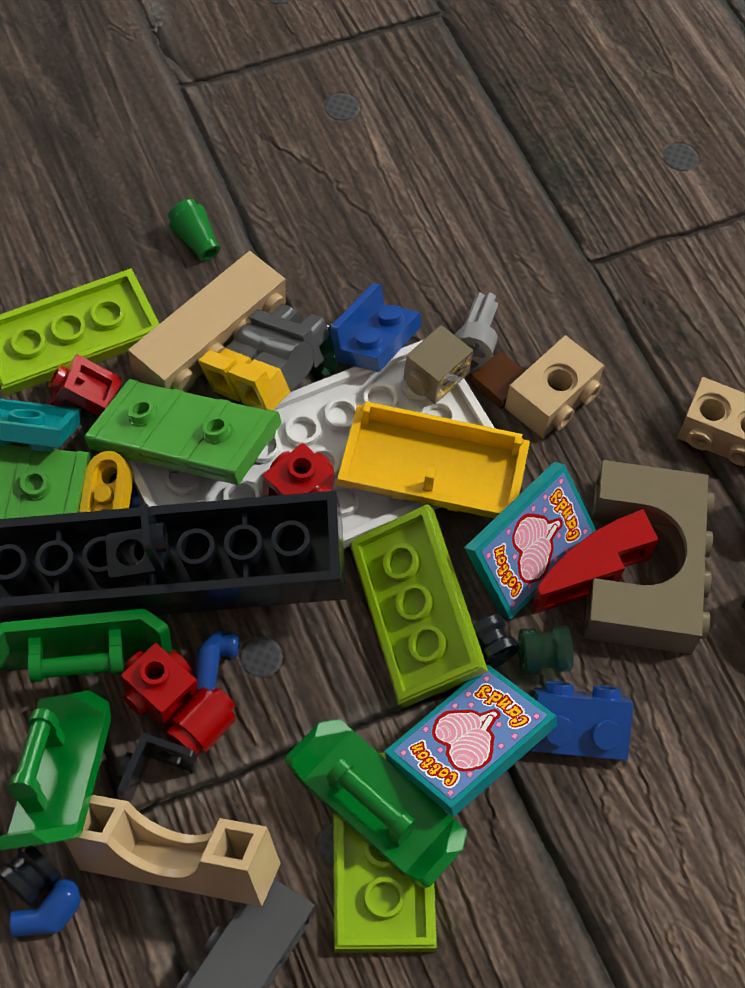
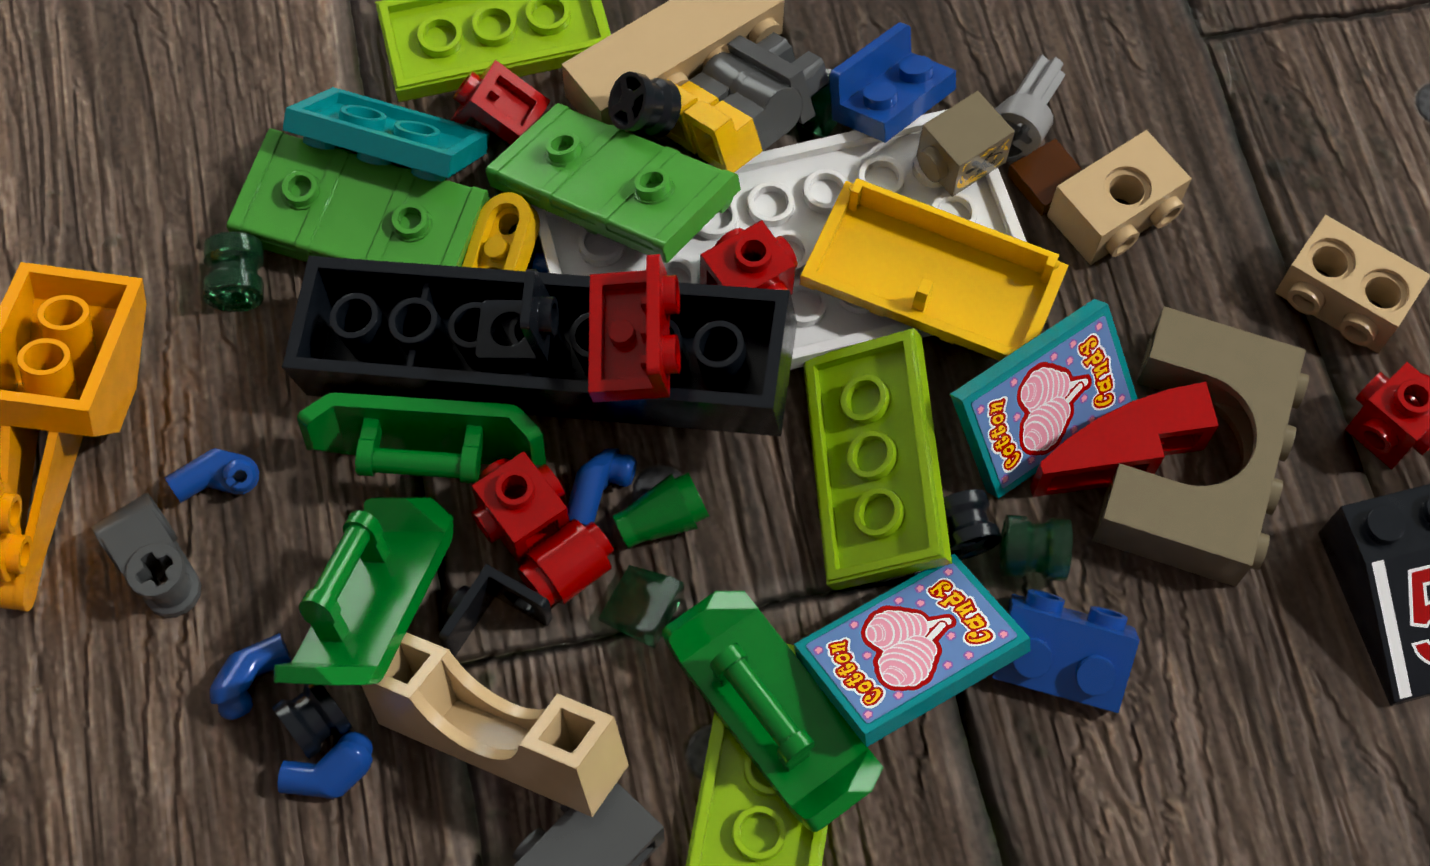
camera: 15 degrees right, 5 degrees up
(197, 370) = (644, 104): none -> black wheel
(224, 540) = (631, 333): none -> red bracket
(264, 742) = (643, 604): none -> clear green slope
(266, 670) = (663, 511): none -> green cone

